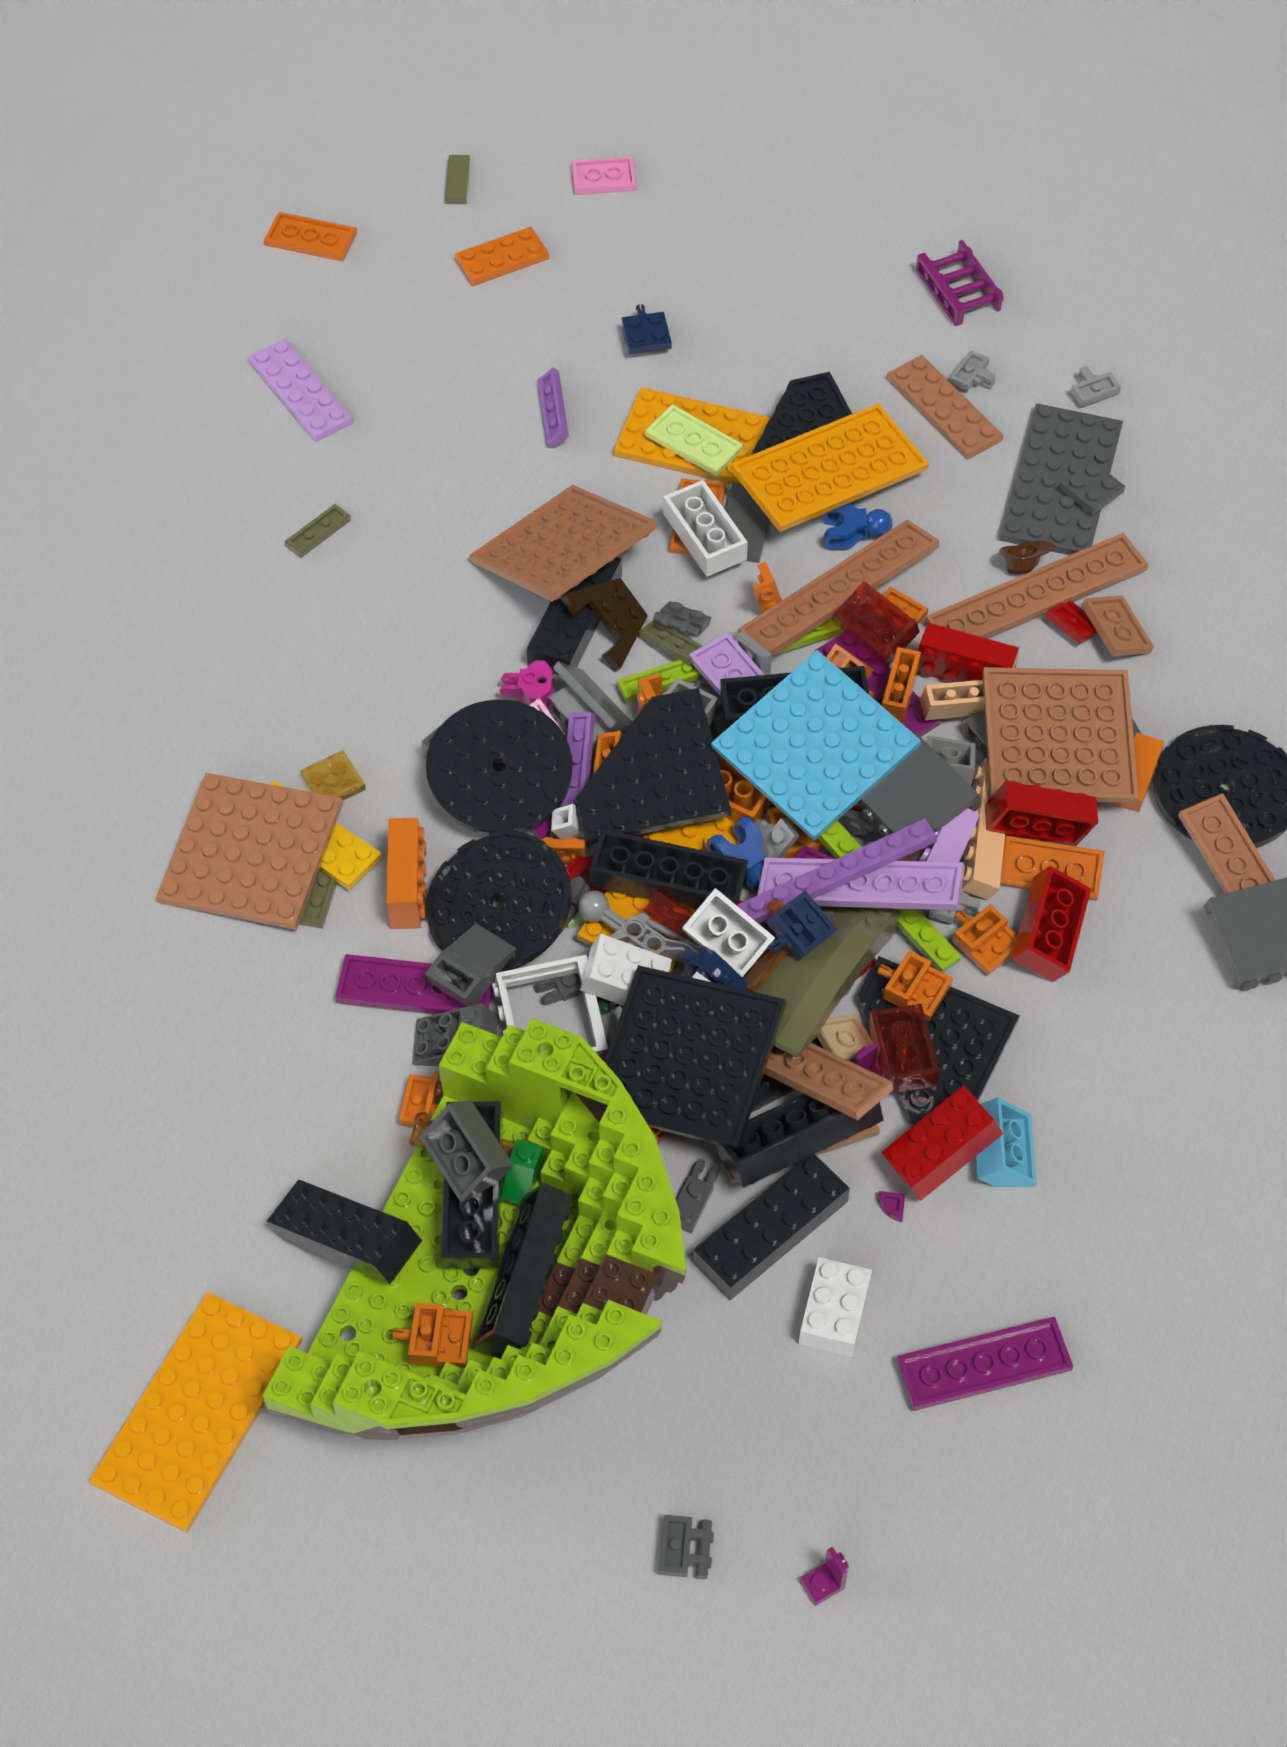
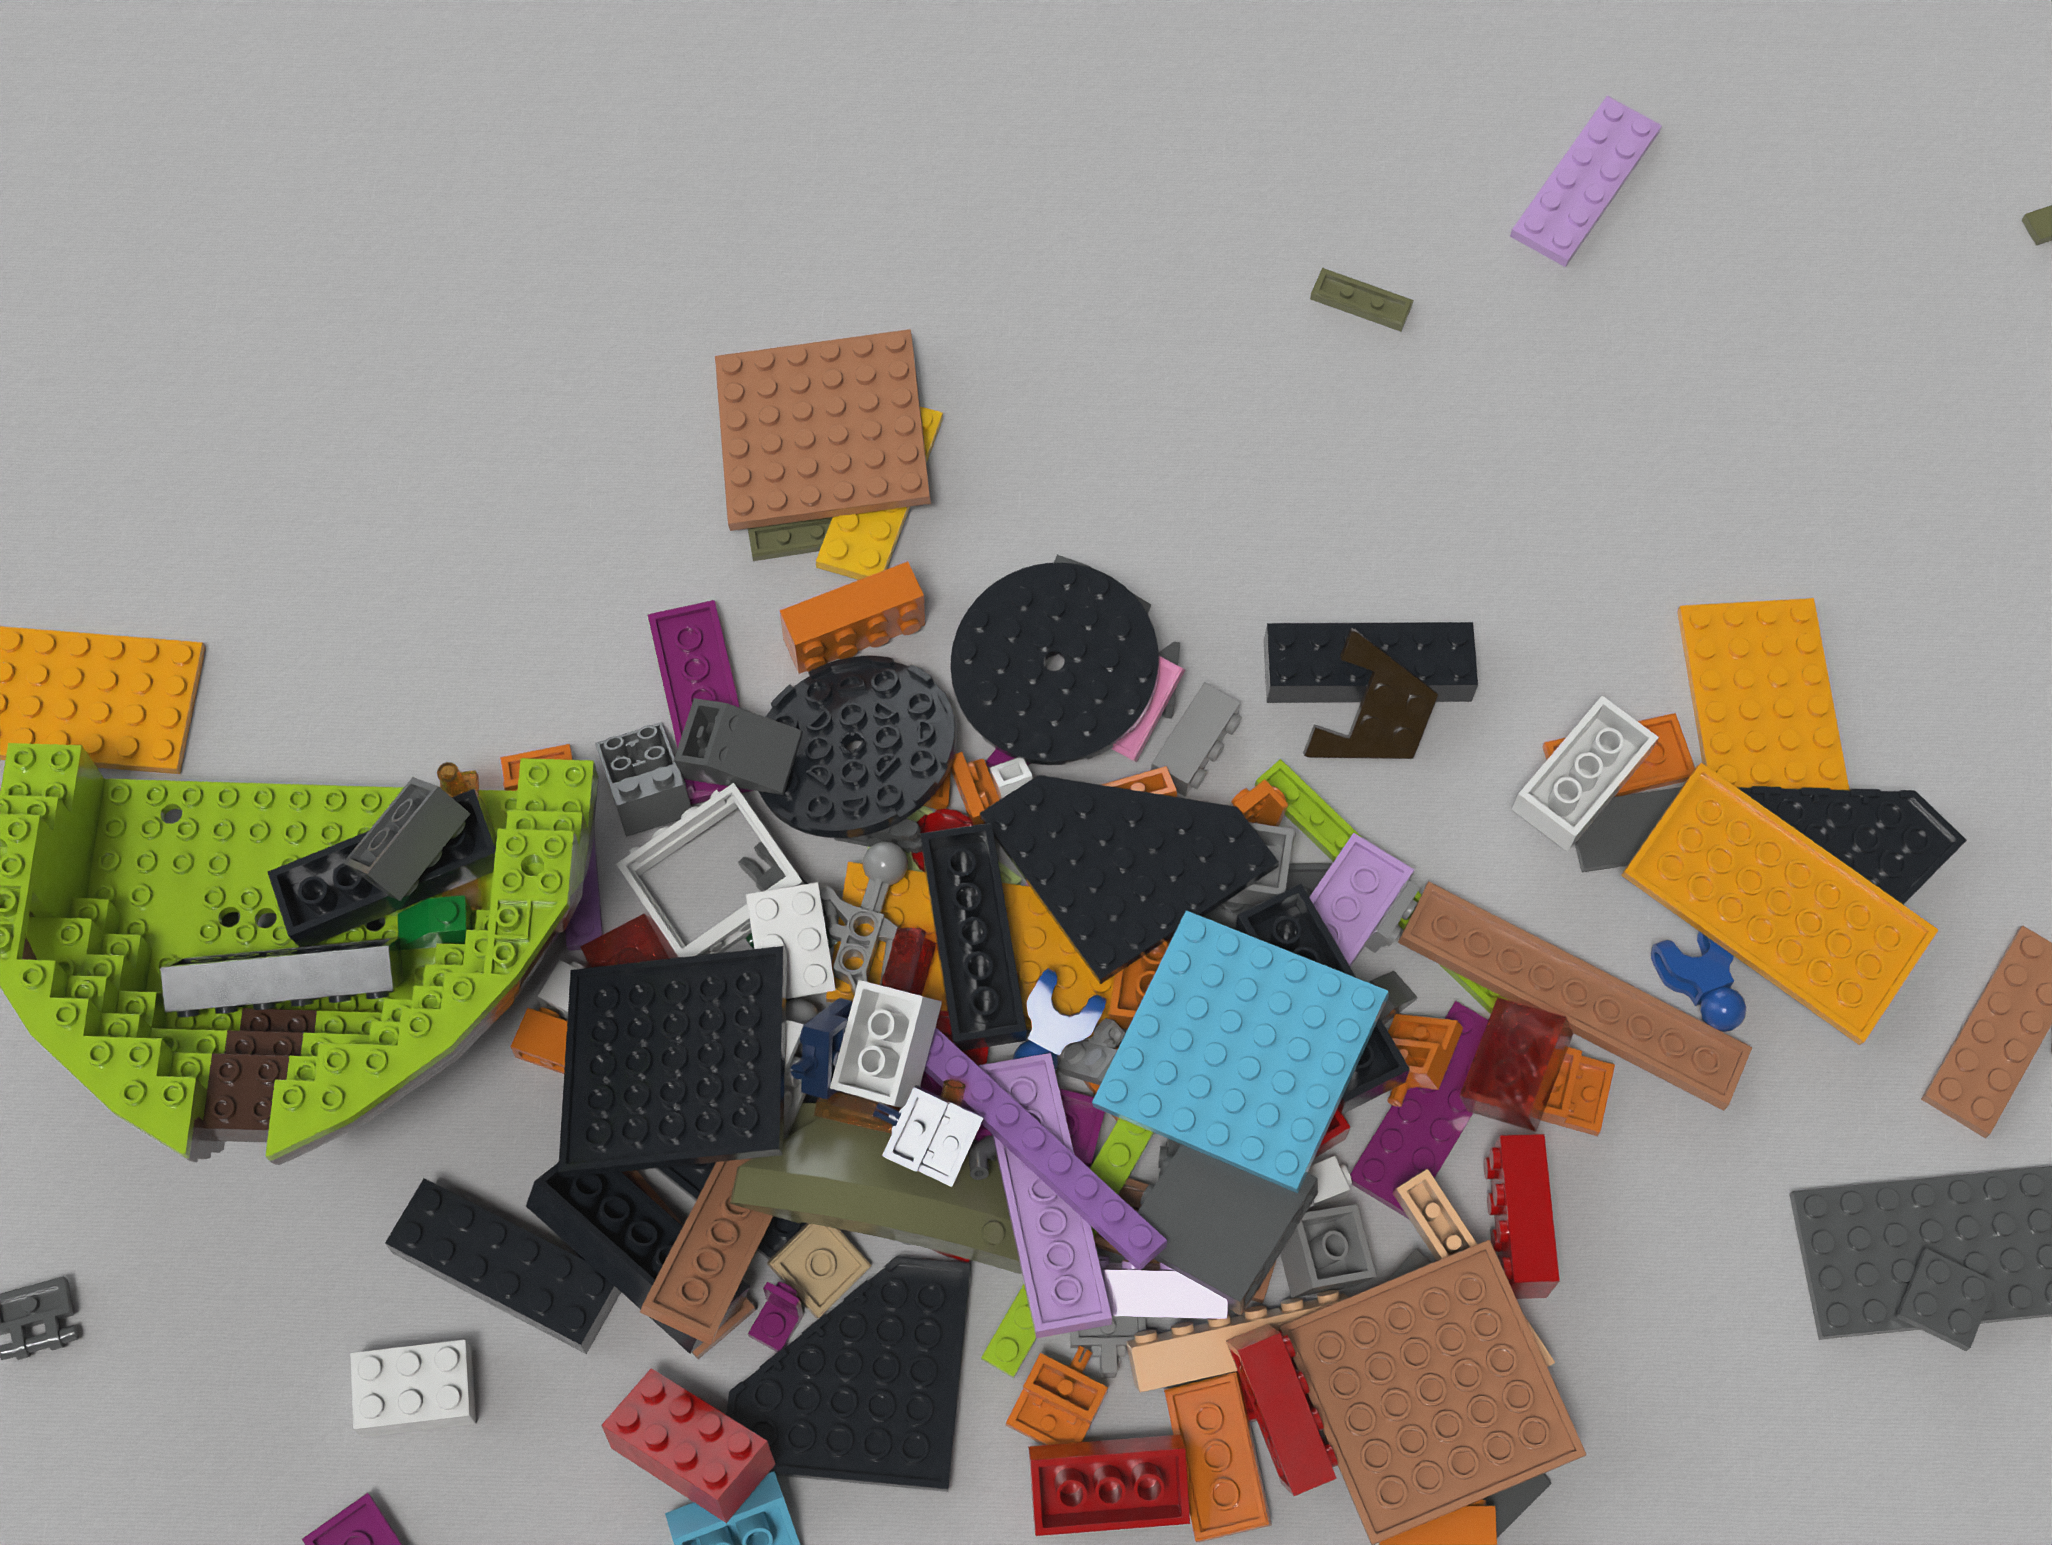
camera: 65 degrees right, 10 degrees up
(310, 236) = (1862, 81): orange tile -> none
(333, 777) = (972, 479): clear yellow plate -> none
(344, 1231) = (296, 753): black brick -> none
(437, 1335) = (178, 913): orange plate -> none
(501, 256) = (1961, 328): orange plate -> none
(529, 683) = (1219, 656): dark pink hinge -> none
(553, 408) = (1714, 499): medium lavender plate -> none
(563, 542) = (1464, 599): nougat plate -> none
(580, 741) = (1128, 754): medium lavender plate -> none
(593, 697) = (1231, 740): dark grey tile -> none
(646, 332) = (1917, 566): dark blue plate -> none
(669, 641) = (1379, 802): olive tile -> none
(682, 618) = (1430, 804): dark grey plate -> none
(694, 440) = (1745, 703): yellowish green tile -> none
(695, 1196) = (513, 1153): dark grey hinge -> none
(766, 591) = (1518, 900): orange bracket -> none
(826, 1579) = (35, 1506): magenta bracket -> none
(892, 1204) = (596, 1412): magenta tile -> none
(901, 683) = (1424, 1136): orange brick -> none
(904, 1048) = (816, 1343): clear red brick -> none
(916, 984) = (930, 1328): orange plate -> none
(1025, 557) = (1766, 1240): reddish brown piece -> none
(1043, 589) = (1712, 1284): nougat plate -> none
(1072, 621) = (1680, 1353): red plate -> none
(1117, 626) = (1697, 1420): nougat plate -> none

